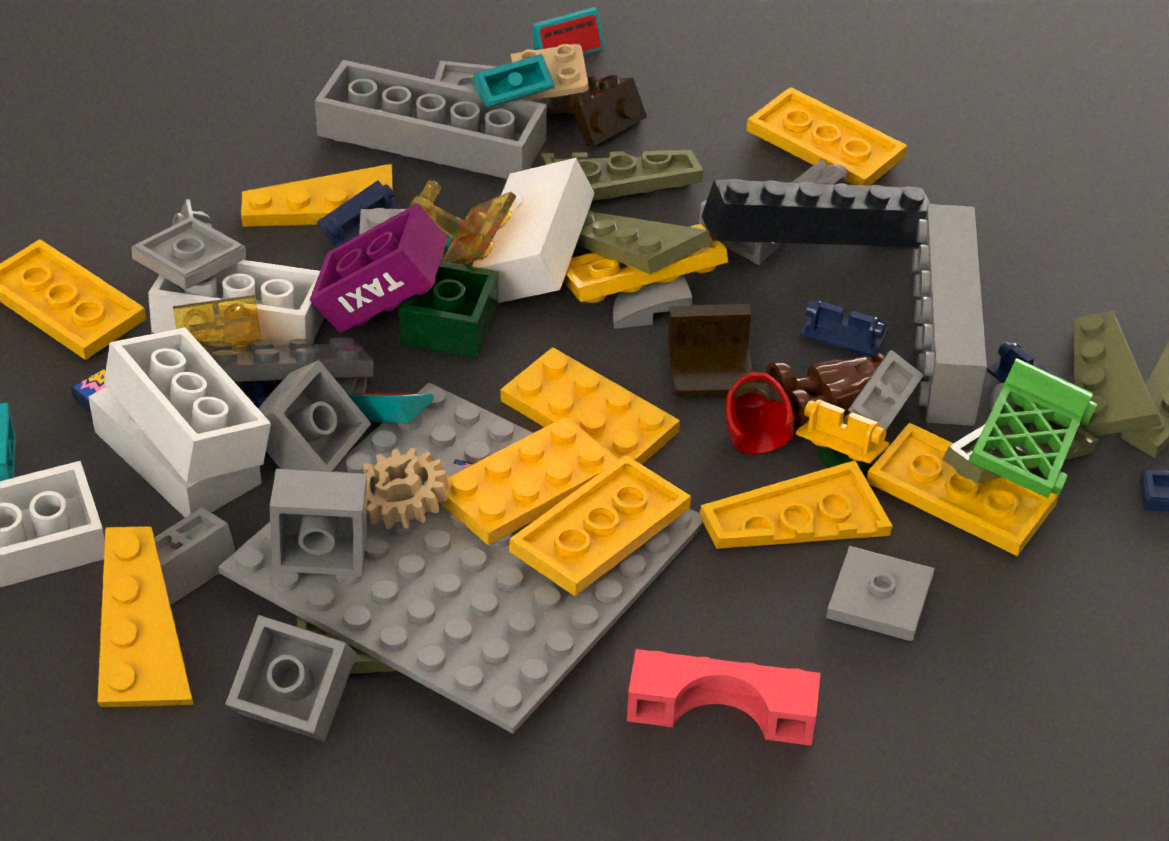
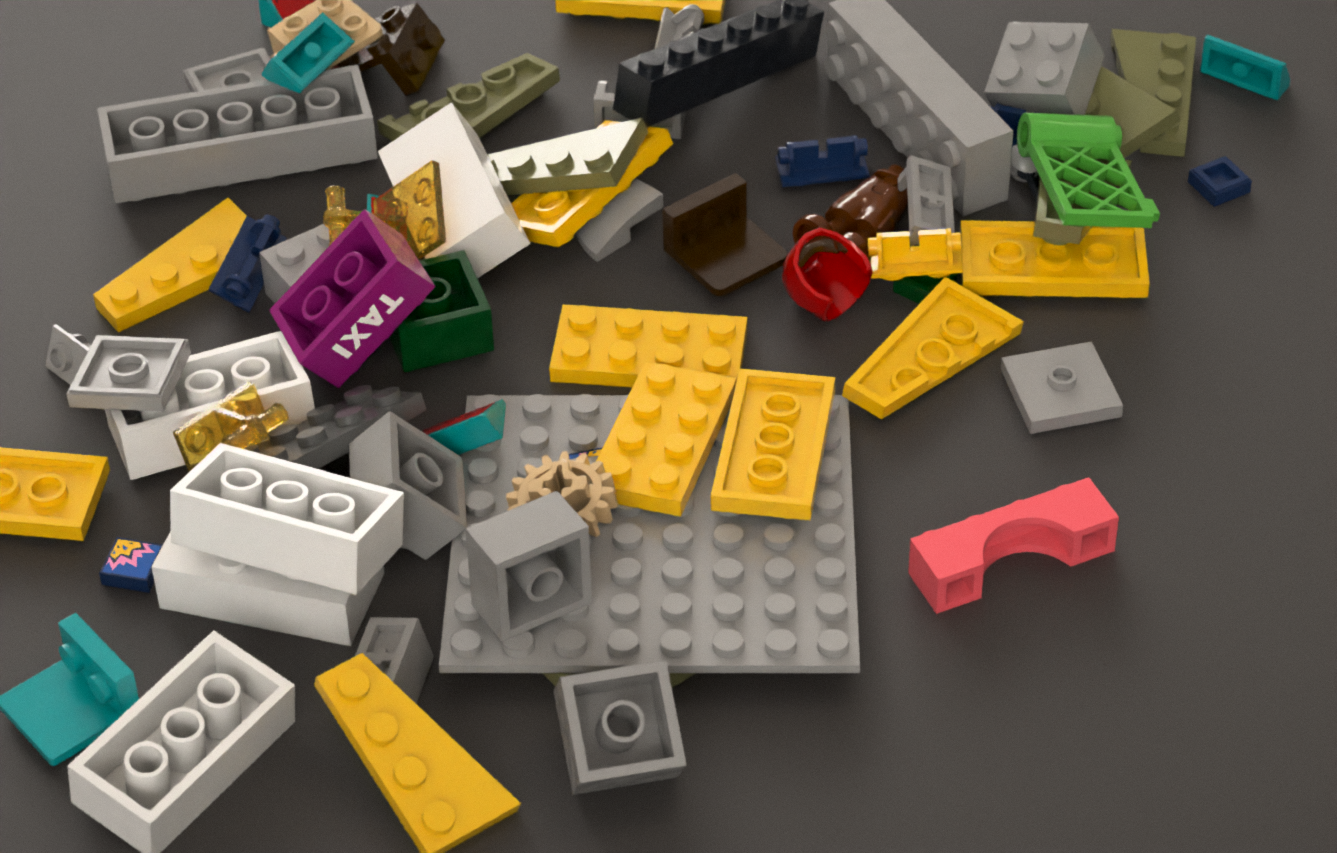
camera: 30 degrees left, 0 degrees up
(1074, 334) = (1046, 68): none -> light grey brick

